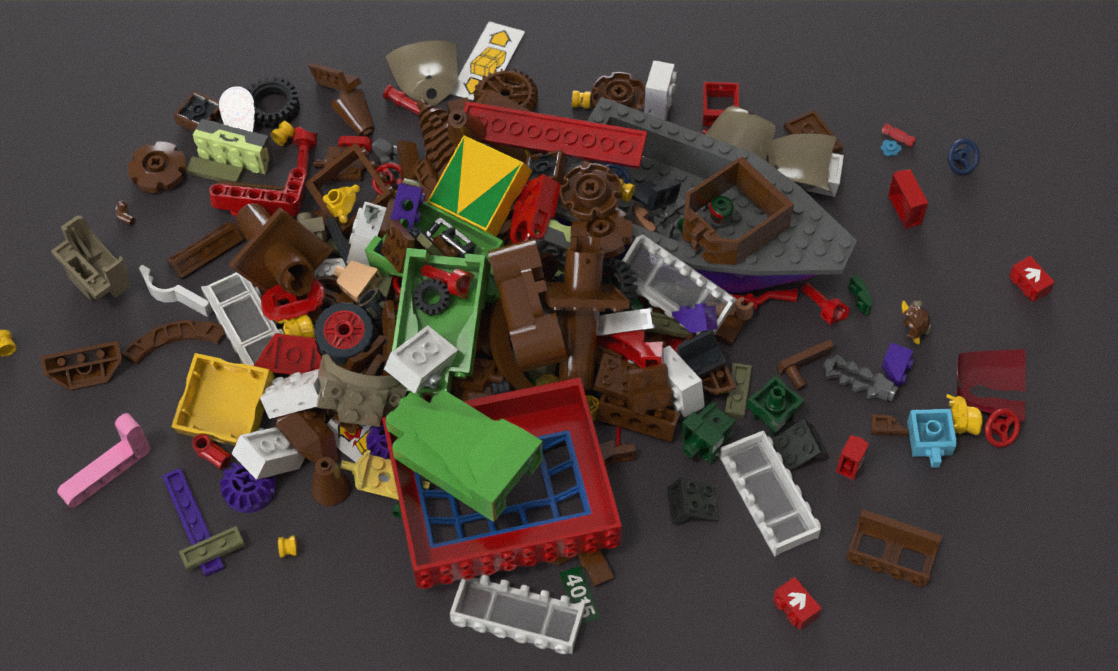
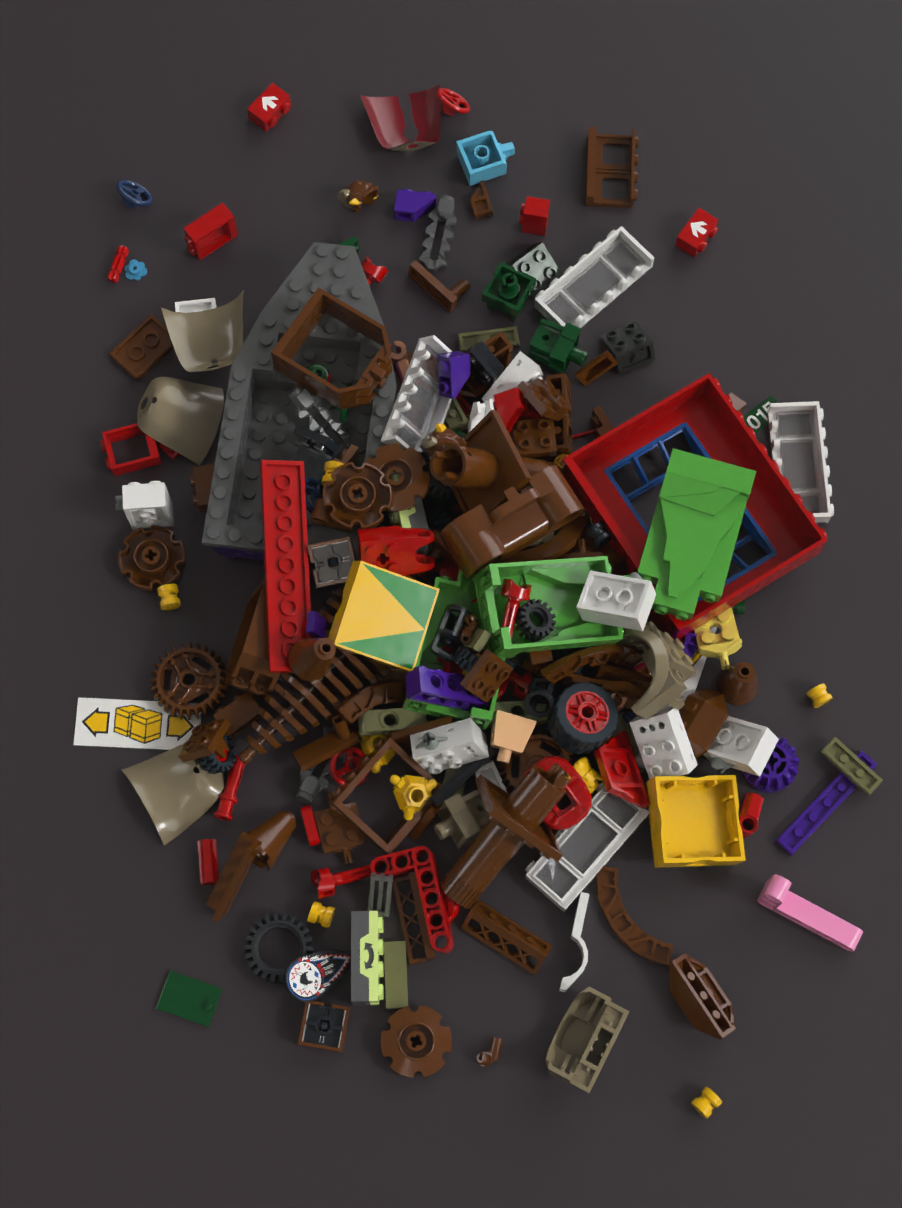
camera: 110 degrees left, 15 degrees up
(265, 45) = (189, 998): none -> dark green container
(278, 171) = (381, 878): none -> flat silver tile
(366, 77) = (208, 861): none -> red axle
(442, 88) = (211, 746): none -> reddish brown plate
(494, 141) = (316, 625): none -> dark purple tile
(613, 264) = (440, 439): none -> reddish brown hair
(677, 462) = (596, 368): none -> reddish brown slope
(964, 417) = (459, 130): yellow hair -> none

